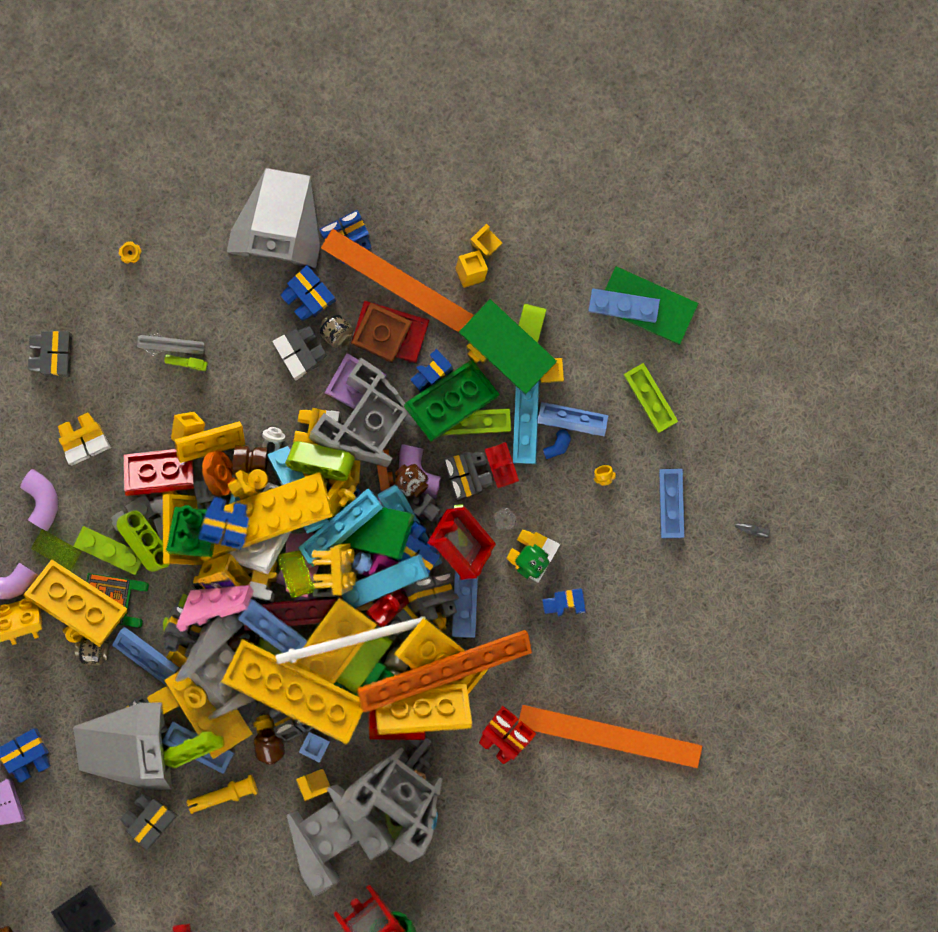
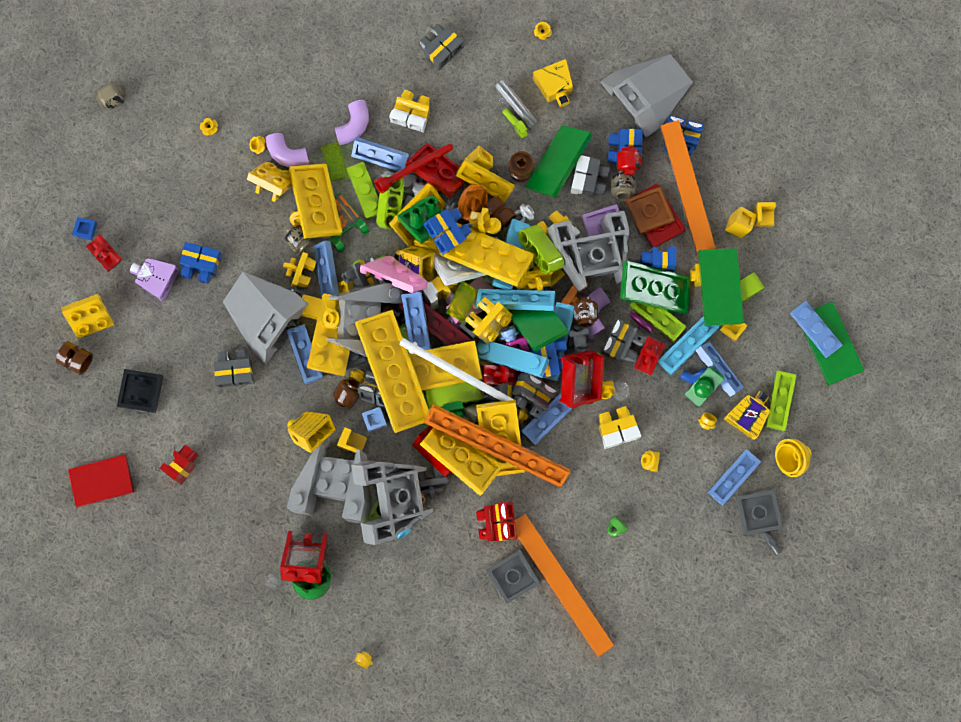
camera: 40 degrees right, 5 degrees down
(92, 506) = (379, 154): none -> medium blue plate
(118, 668) = (304, 263): none -> yellow hips
(126, 532) = (383, 183): none -> red piece
(187, 292) = (554, 82): none -> yellow torso
(192, 749) = (299, 349): lime plate -> none
(230, 399) = (521, 166): none -> reddish brown wheel
(233, 791) = (300, 400): yellow pin -> none
(259, 363) = (558, 161): none -> green tile
(268, 809) = (310, 430): none -> yellow torso
(322, 306) = (629, 160): none -> red head
(466, 440) = (641, 322): none -> magenta helmet
(492, 528) = (607, 389): none -> yellow plate
(532, 561) = (614, 429): green head -> none
(562, 768) = (513, 576): none -> dark grey plate
(565, 600) = (612, 474): blue hips -> none
(573, 447) = (704, 386): none -> green tile
(587, 556) = (650, 460): none -> yellow plate
(611, 638) = (618, 524): none -> bright green tile
(635, 435) = (749, 415): none -> torso
(706, 439) = (793, 457): none -> yellow piece
(720, 514) = (759, 512): none -> dark grey plate

